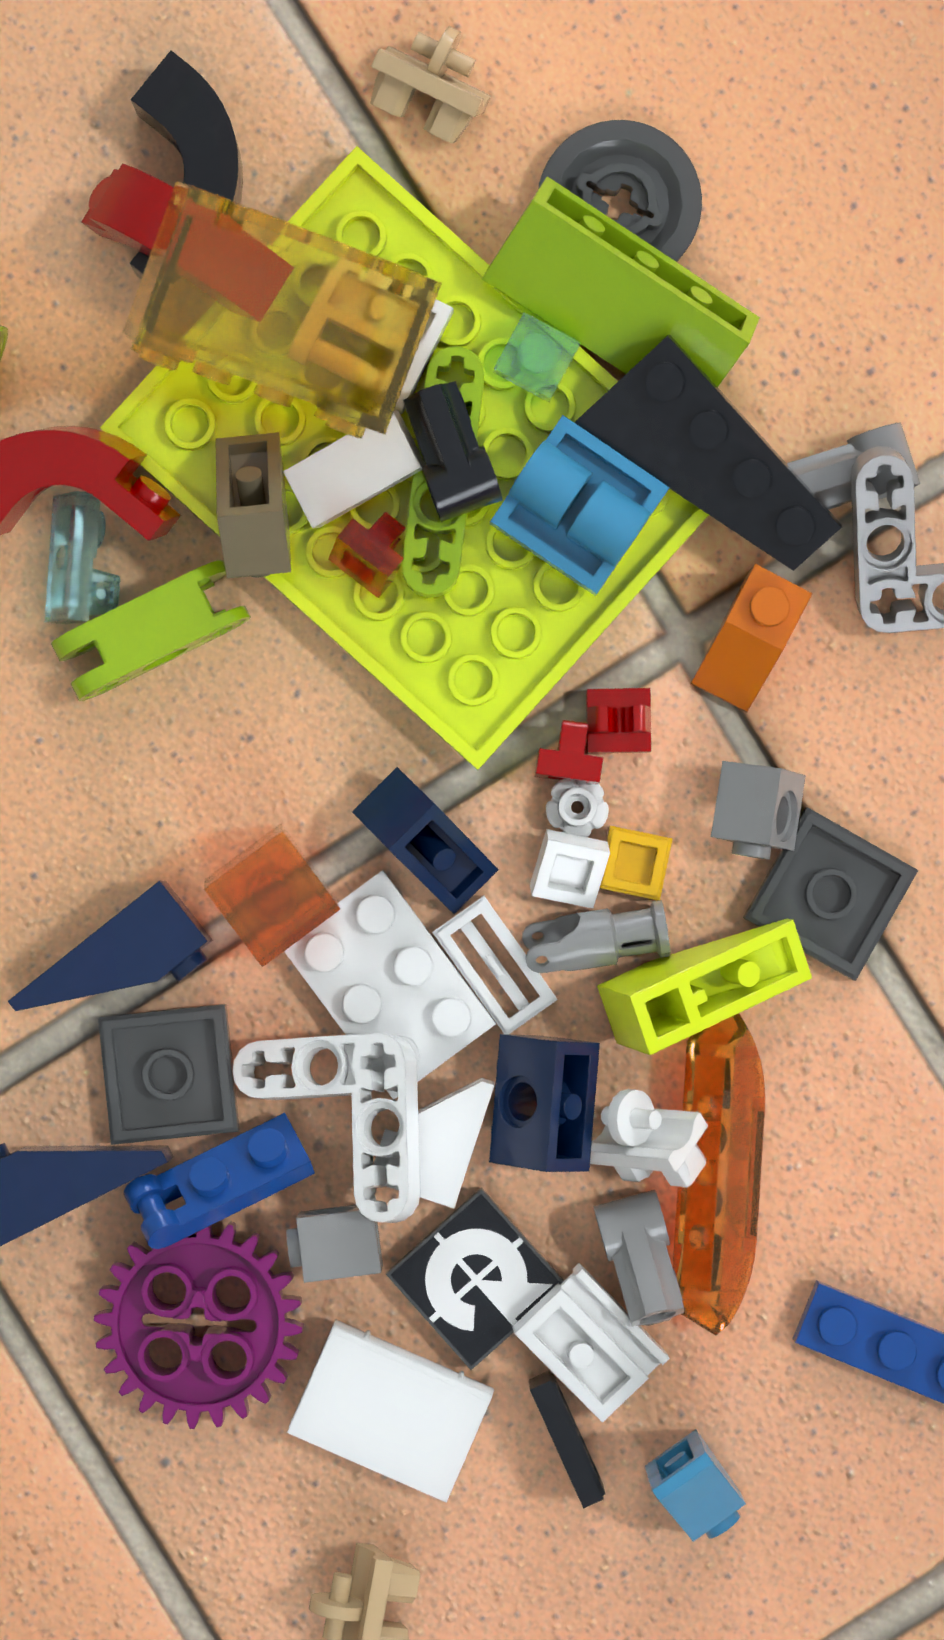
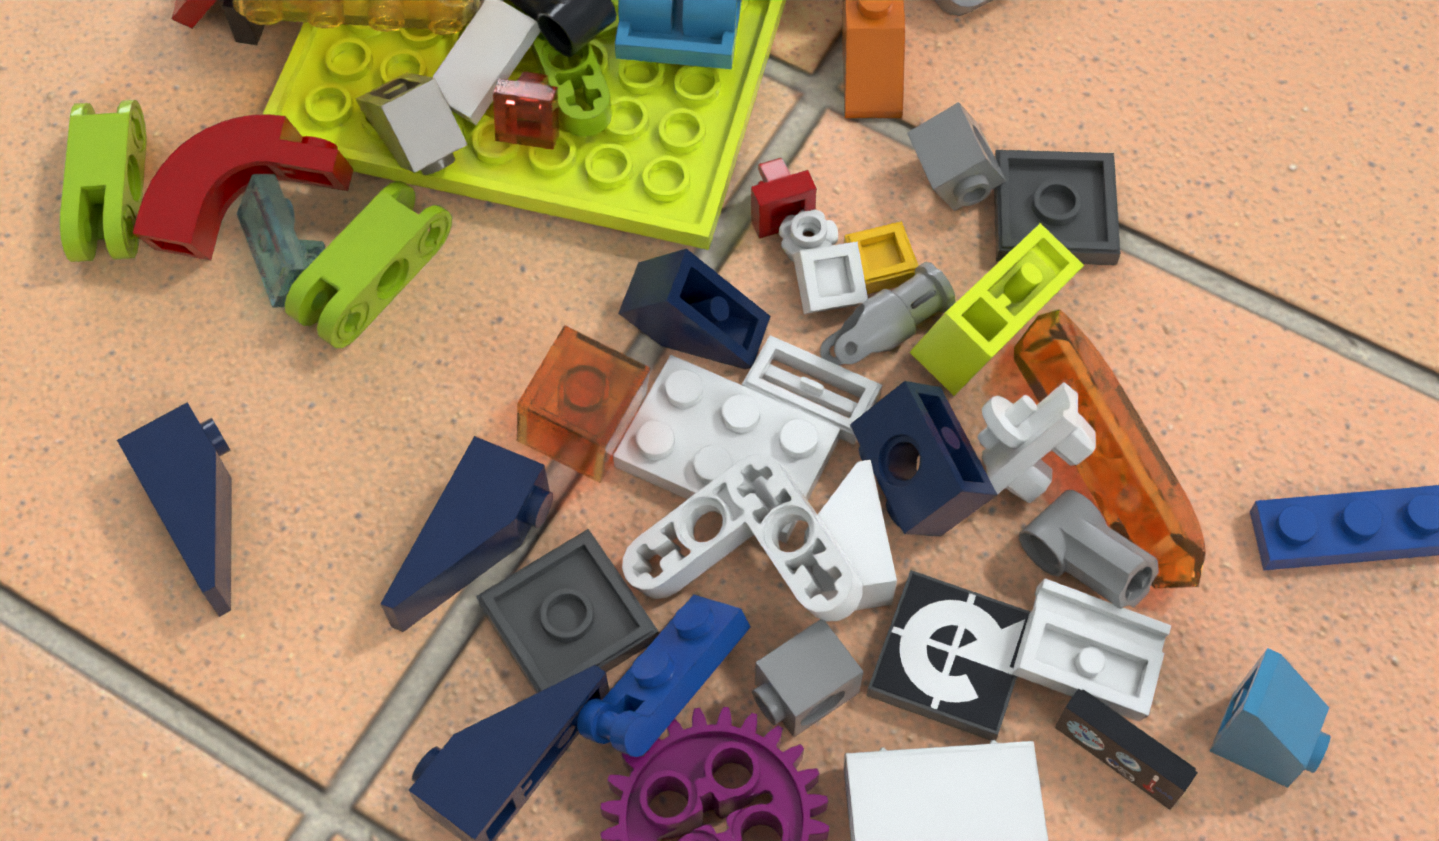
camera: 25 degrees left, 25 degrees down
(618, 720) = (809, 151): red tile -> none

